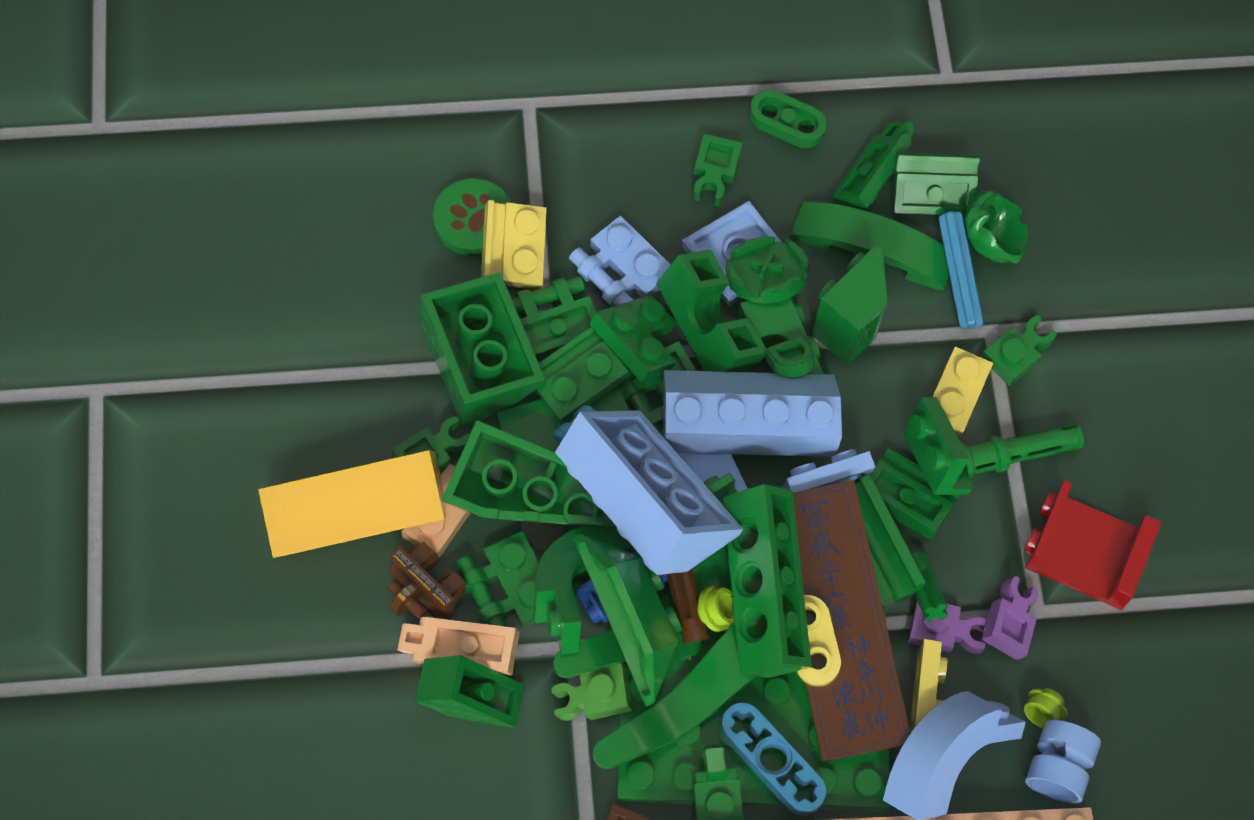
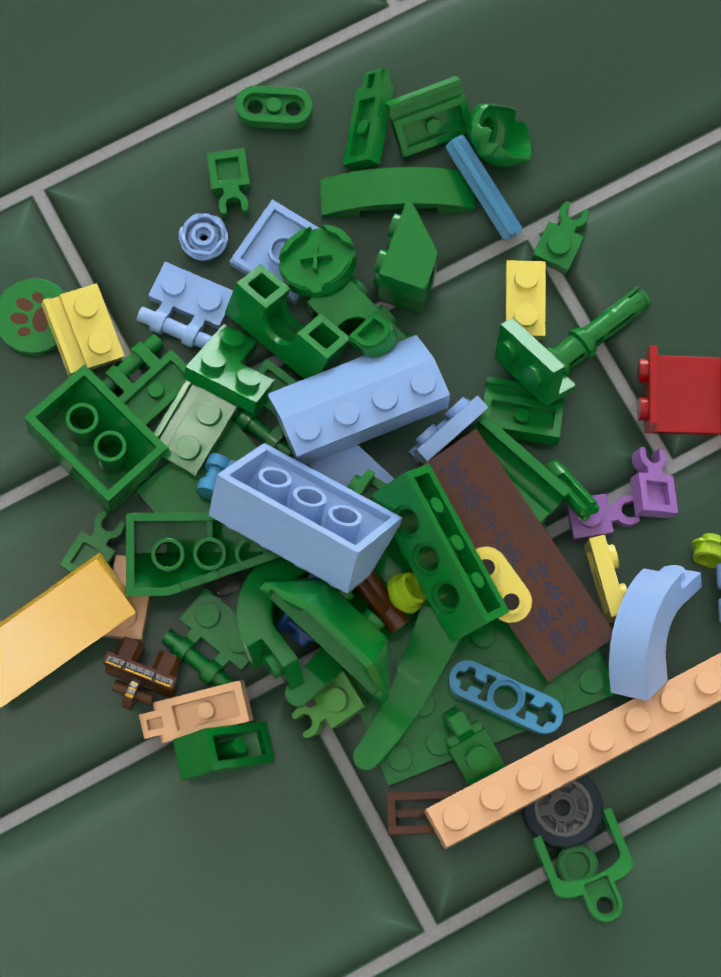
camera: 20 degrees left, 10 degrees up
(673, 198) = (202, 225): none -> light blue plate

